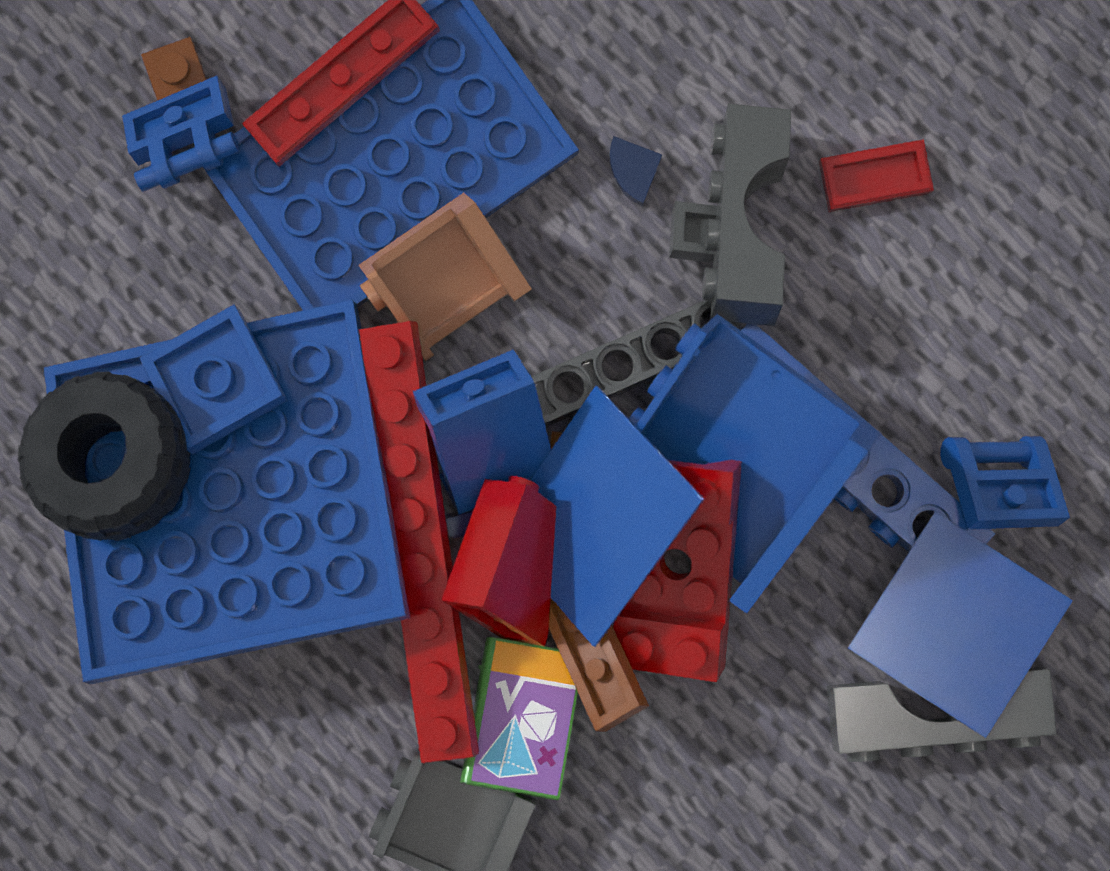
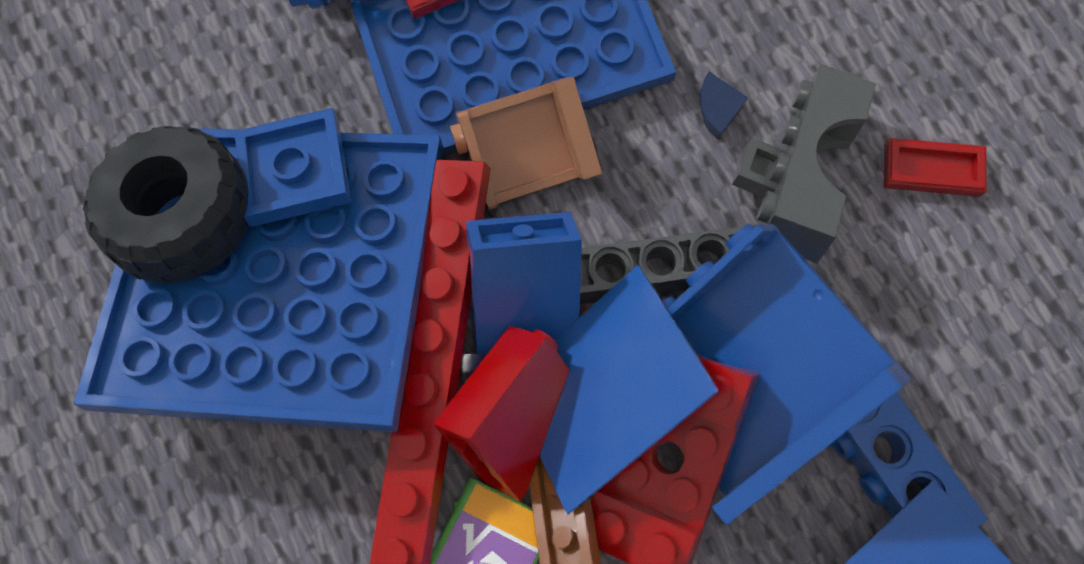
camera: 20 degrees right, 10 degrees down
(1005, 496) = (1006, 487): blue plate -> none

